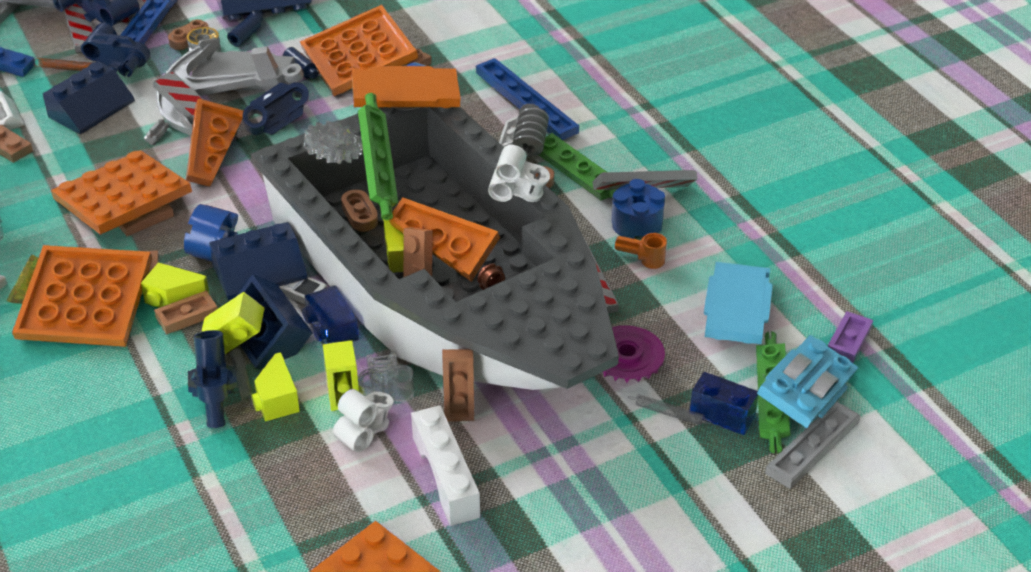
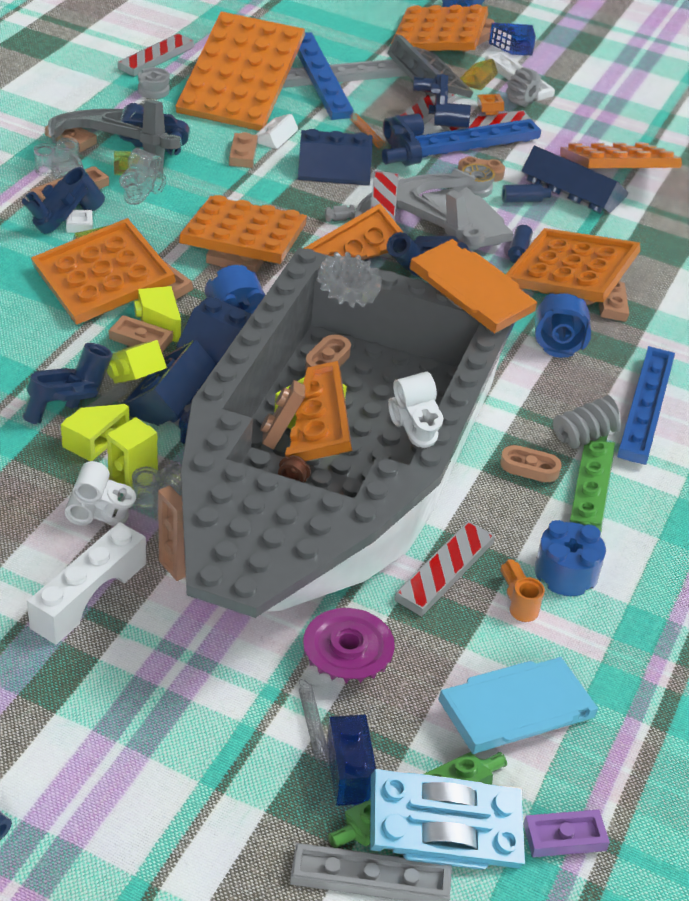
camera: 50 degrees right, 0 degrees up
(377, 156) = (360, 314): bright green plate -> none
(658, 179) = (618, 540): light grey tile -> none

